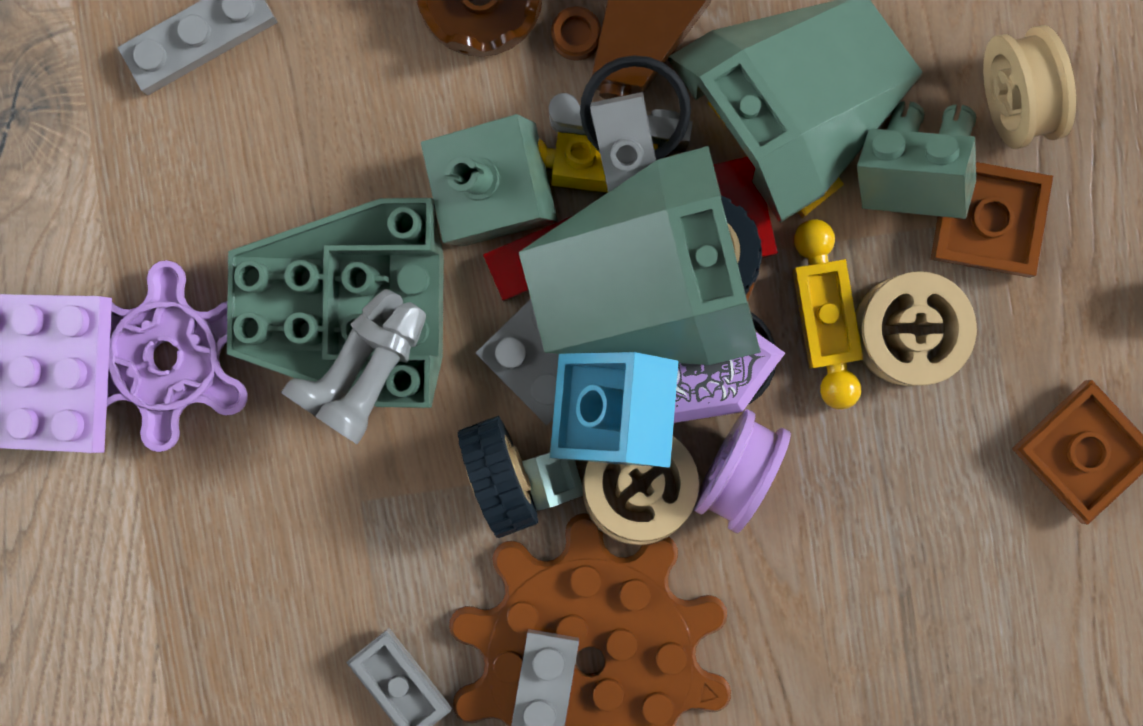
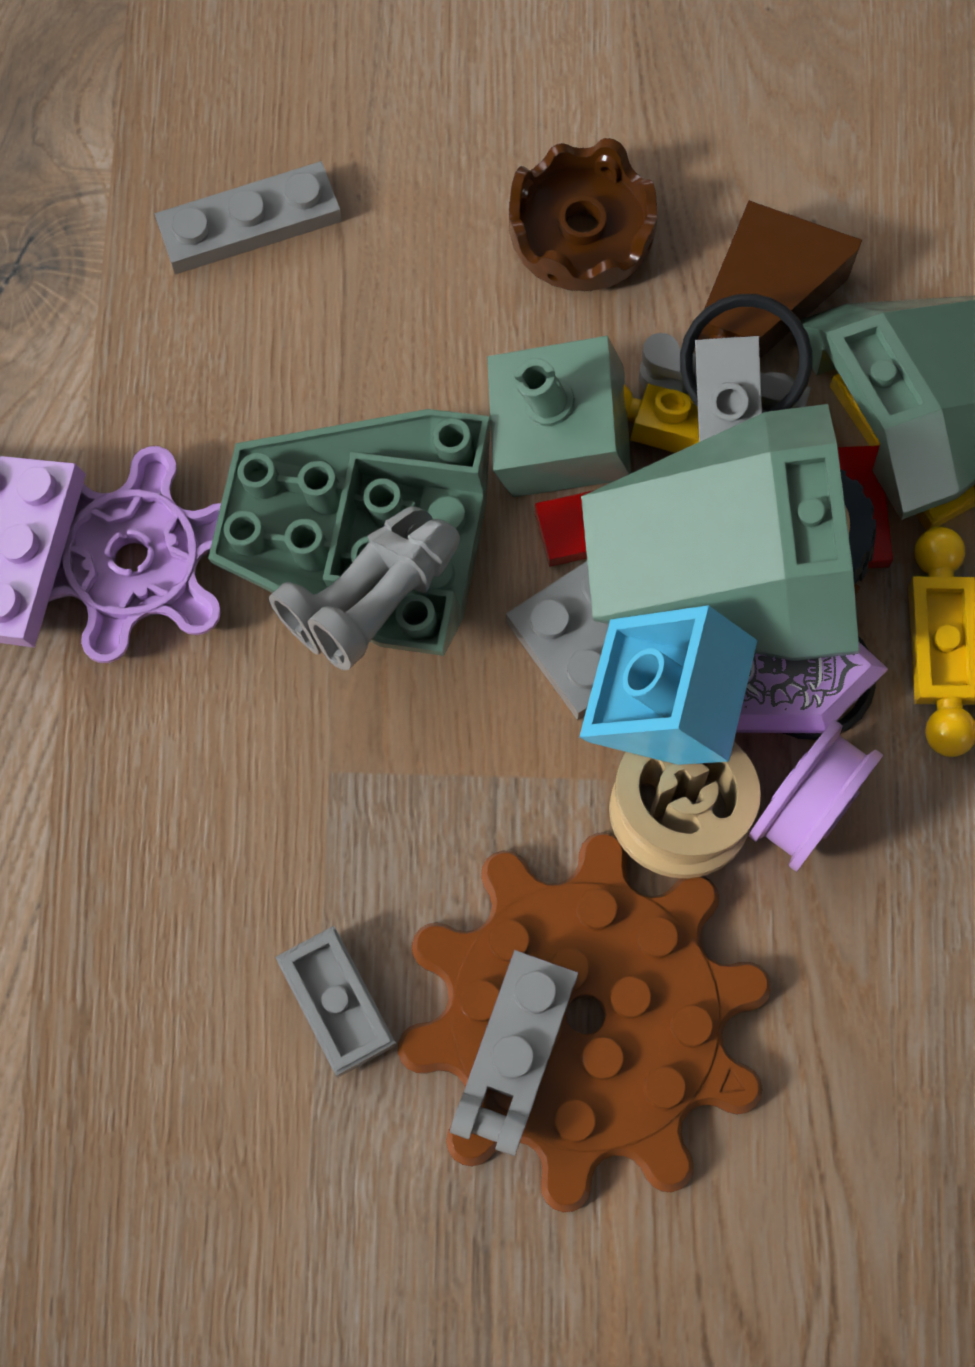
camera: 10 degrees right, 15 degrees down
(497, 477) = (511, 751): black wheel -> none
(552, 480) = (576, 775): light aqua plate -> none
(575, 33) = (685, 284): dark orange tile -> none

